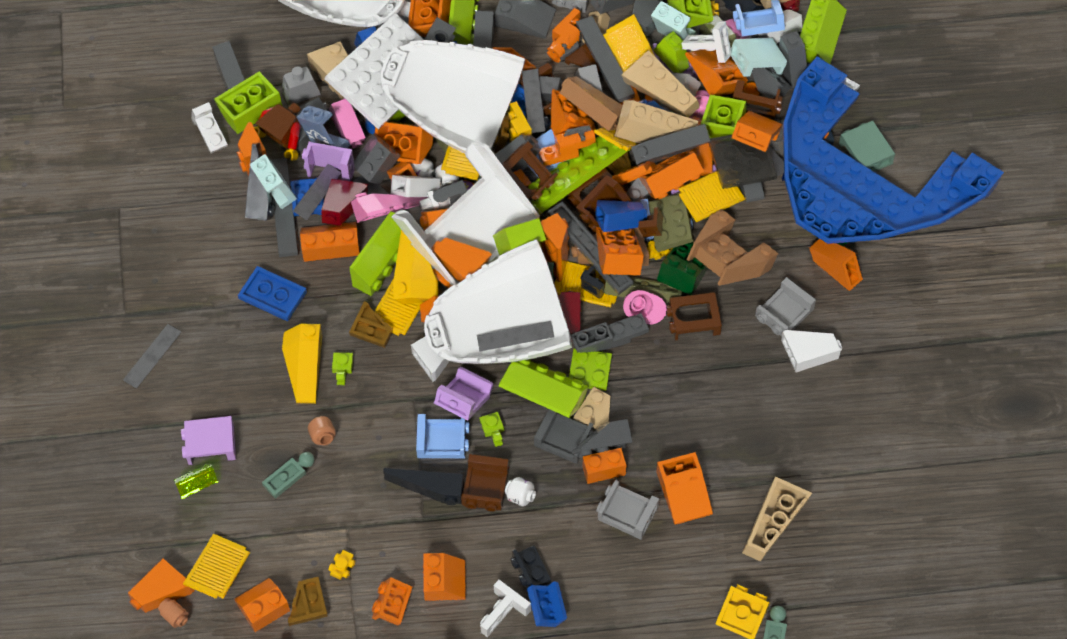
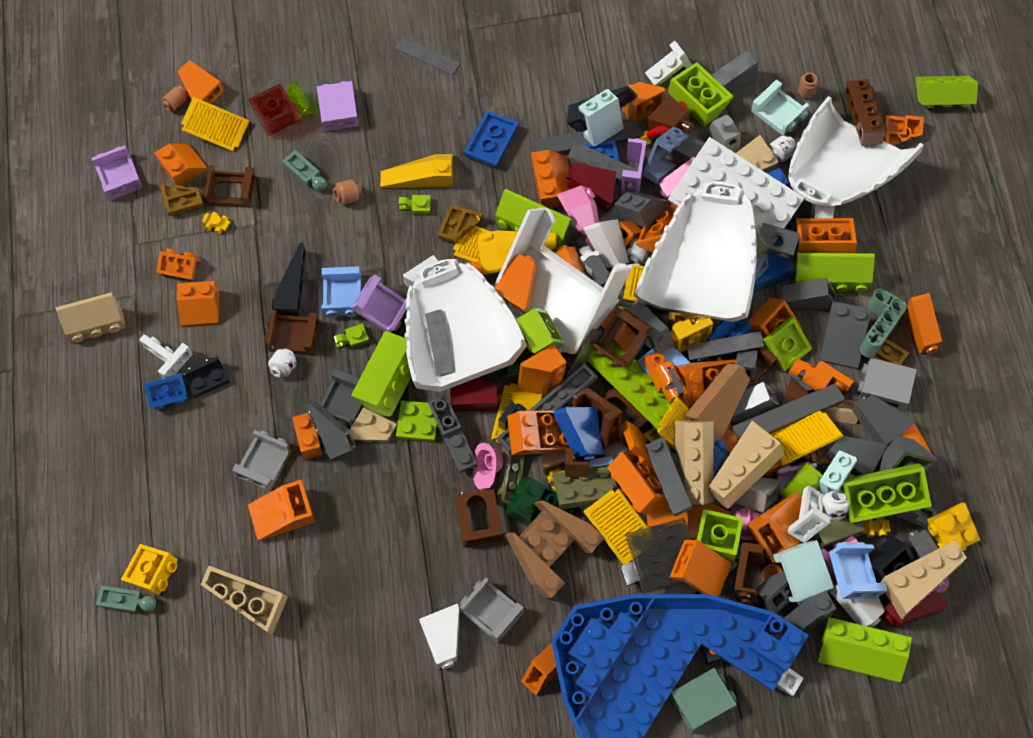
camera: 90 degrees right, 5 degrees up
(208, 502) = (274, 109): none -> clear red brick
(251, 13) = (808, 85): none -> nougat brick
(273, 41) = (779, 109): none -> light aqua panel
(305, 531) = (215, 177): none -> reddish brown panel
(318, 39) = (783, 148): none -> white head
(533, 54) = (787, 343): none -> lime plate
(698, 26) = (835, 505): none -> white head

